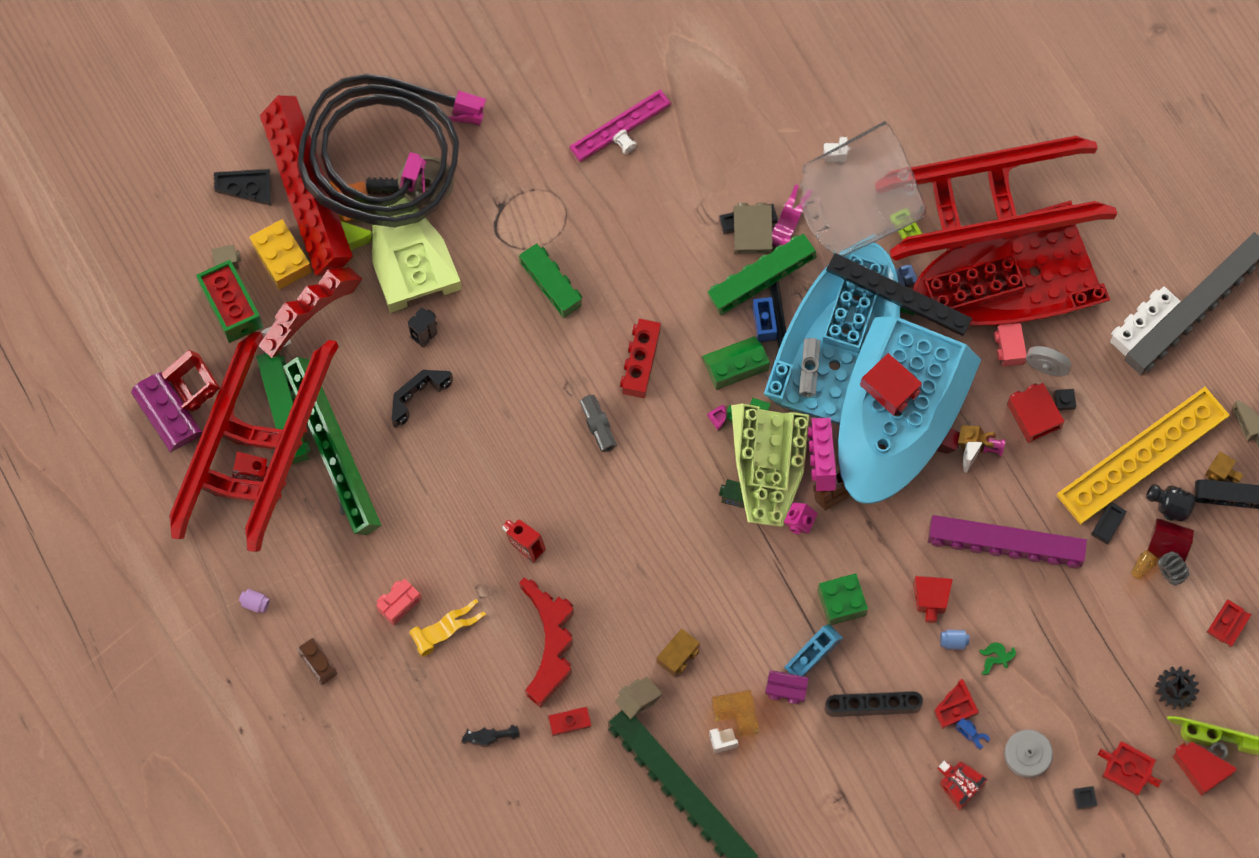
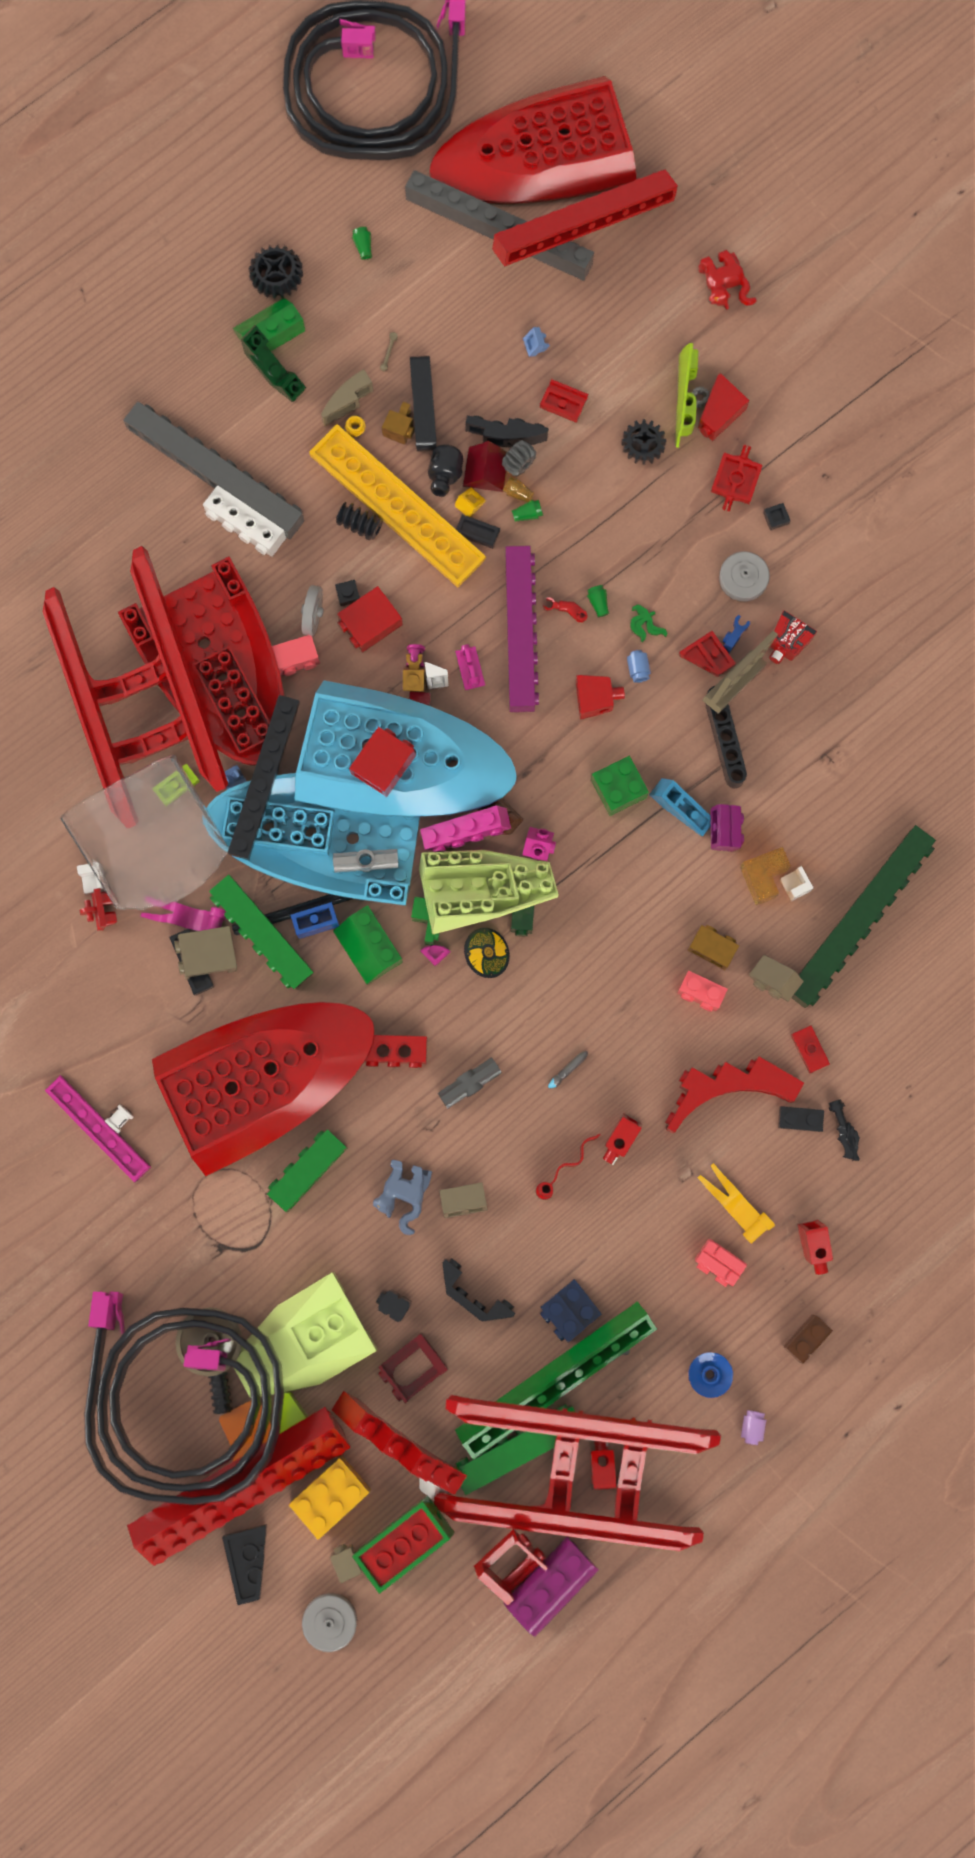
camera: 100 degrees left, 10 degrees up
(183, 238) = (329, 1622): none -> light grey wheel
(302, 566) = (718, 1383): none -> blue dish
(370, 316) = (407, 1392): none -> dark red panel
(385, 470) = (569, 1311): none -> dark blue plate
(396, 684) = (815, 1236): none -> red torso
(493, 472) = (545, 1196): none -> red flag
(498, 400) = (463, 1200): none -> dark tan hinge
(508, 699) = (801, 1119): none -> black plate
(515, 357) = (405, 1190): none -> sand blue animal
(593, 508) = (570, 1067): none -> flat silver piece
(611, 253) = (231, 1126): none -> red piece
(640, 633) = (702, 991): none -> coral brick
(709, 457) = (486, 952): none -> shield
(797, 153) = (102, 918): none -> red hips
(927, 721) = (739, 676): none -> dark tan fence
(977, 492) = (470, 667): none -> dark pink hinge
(1022, 591) = (571, 608): none -> red arm
(1026, 616) = (598, 599): none -> green cone
(1121, 572) = (528, 511): none -> green cone
(1131, 417) = (358, 522): none -> black piece
(1139, 521) = (469, 502): none -> yellow slope
(1201, 565) = (508, 434): none -> black slope
(1227, 427) = (355, 420): none -> yellow plate

